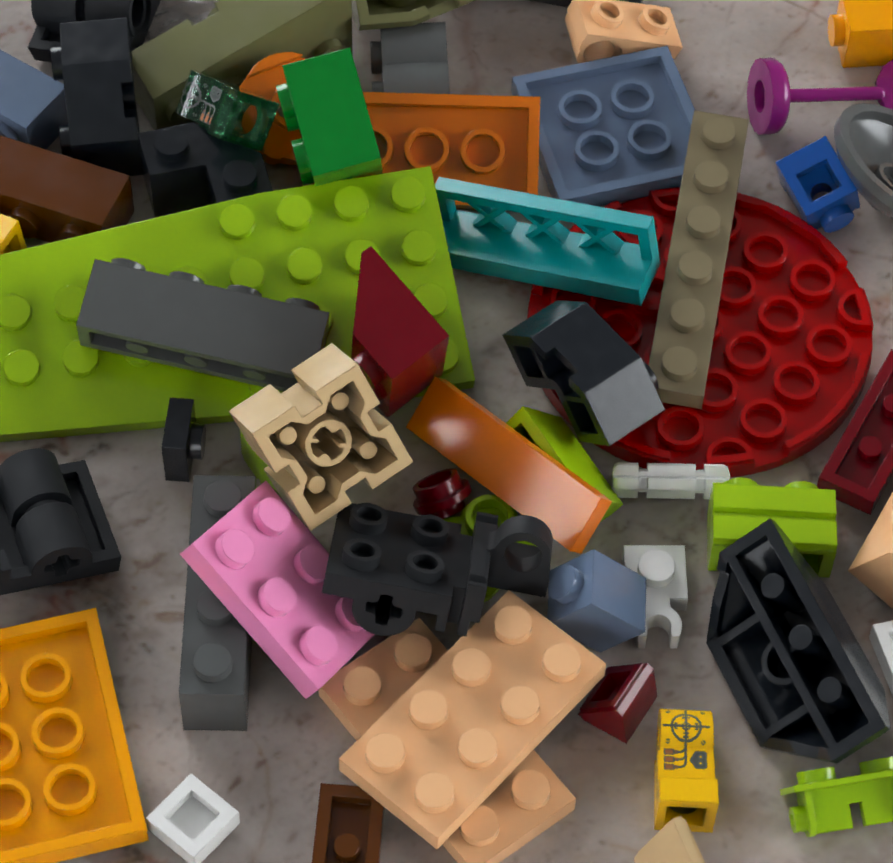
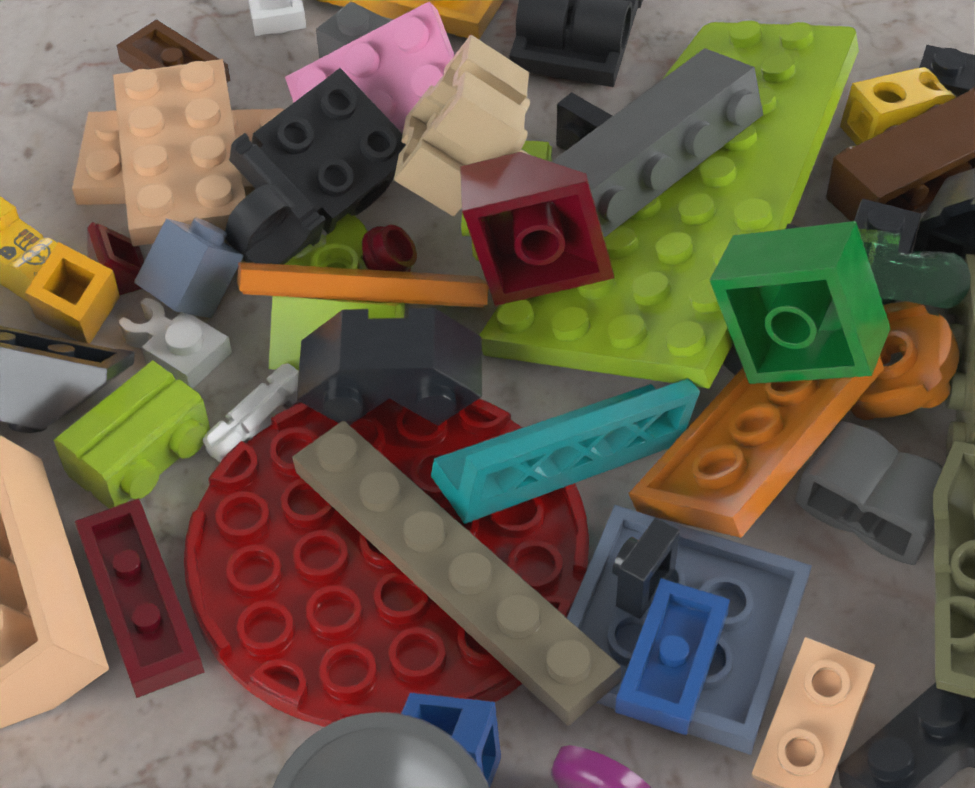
camera: 130 degrees right, 5 degrees down
(612, 131) = (643, 564): none -> black plate
(659, 92) = (672, 656): none -> blue plate
(699, 660) = (73, 293): none -> light orange brick

